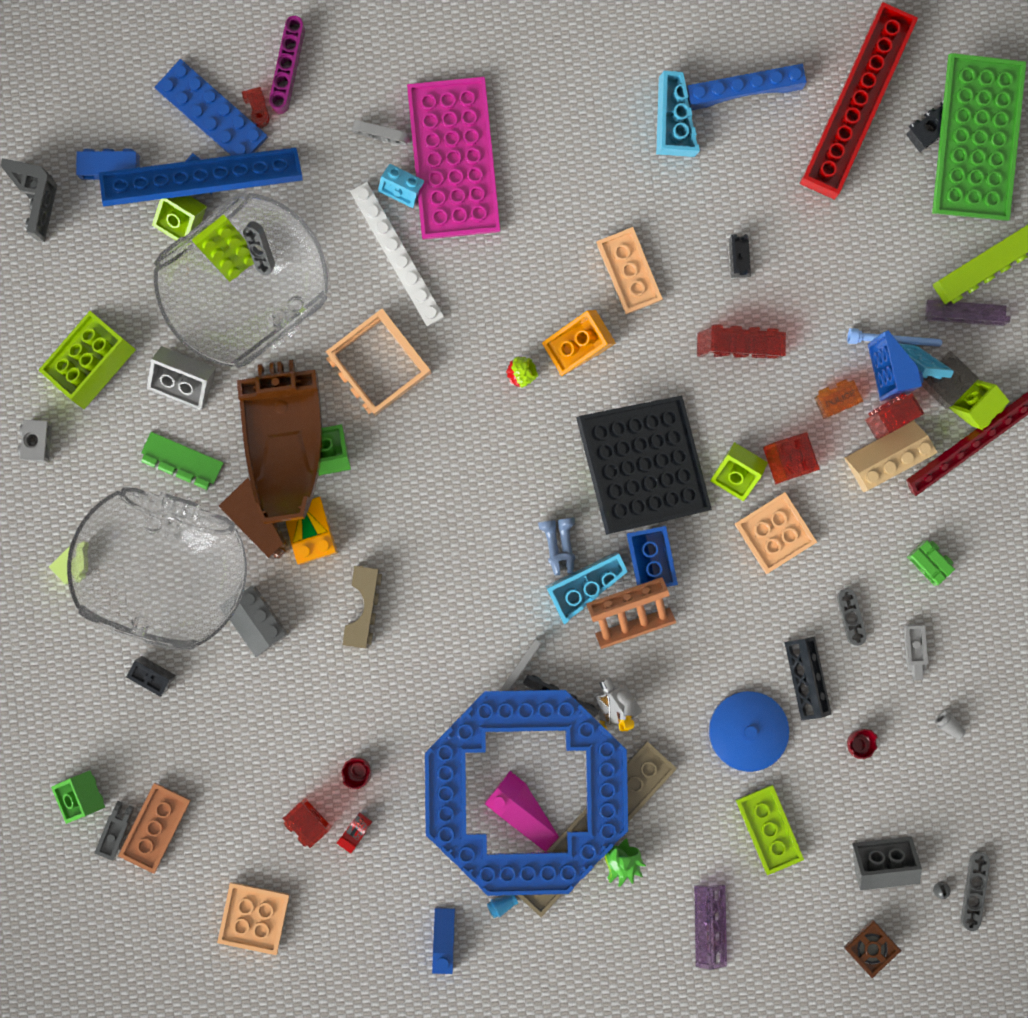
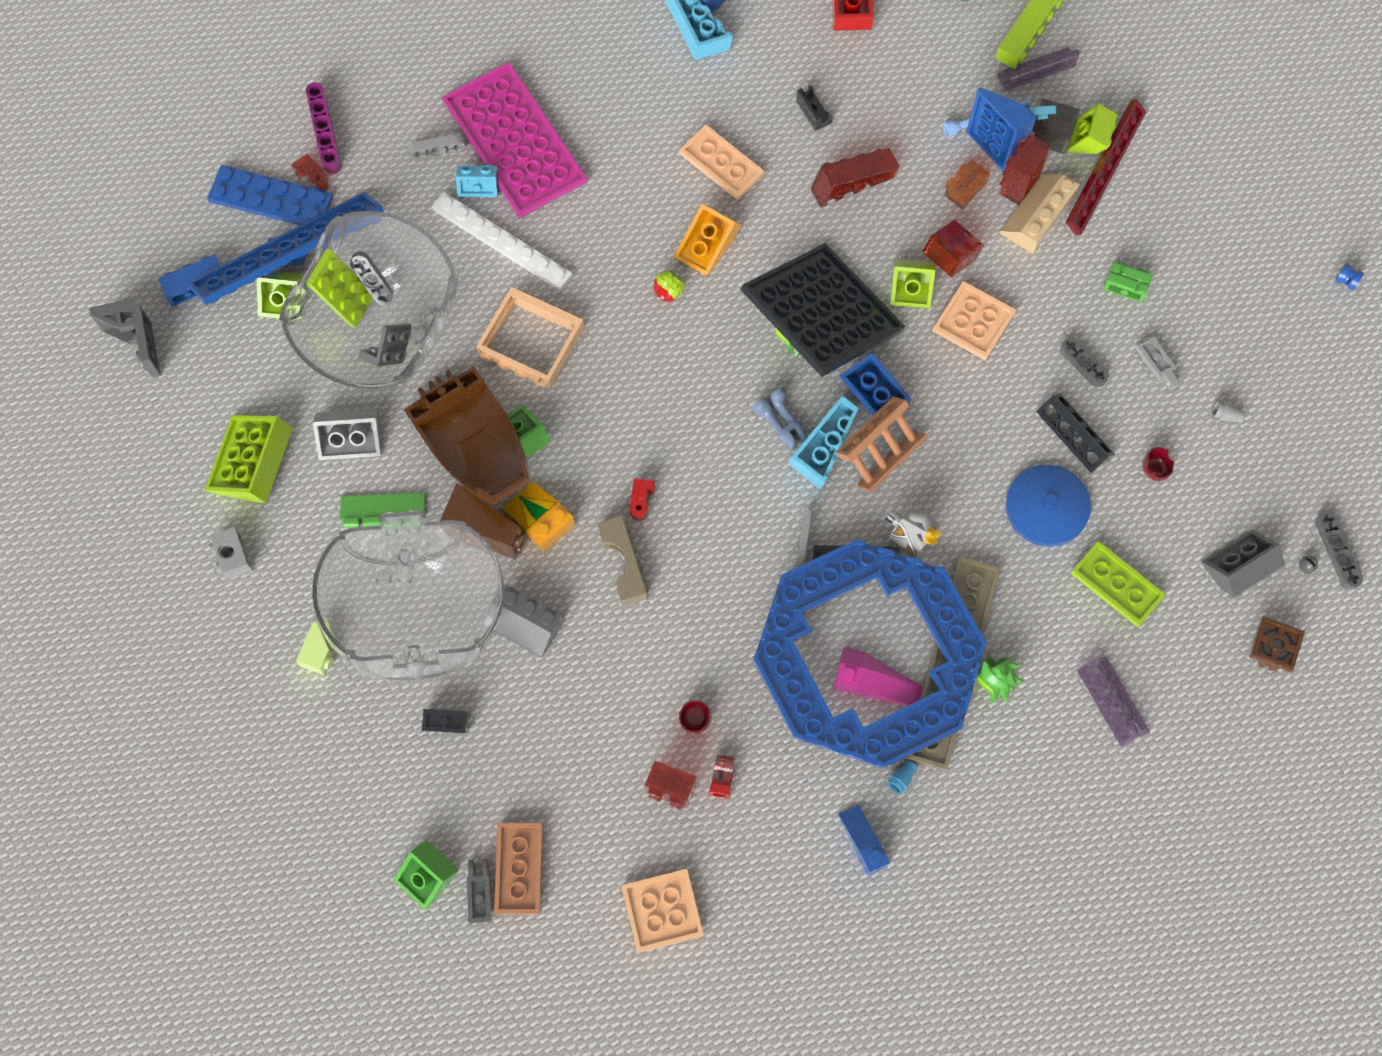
camera: 20 degrees left, 15 degrees down
(243, 326) = (391, 347): none -> dark grey bracket
(398, 563) = (639, 498): none -> red leg

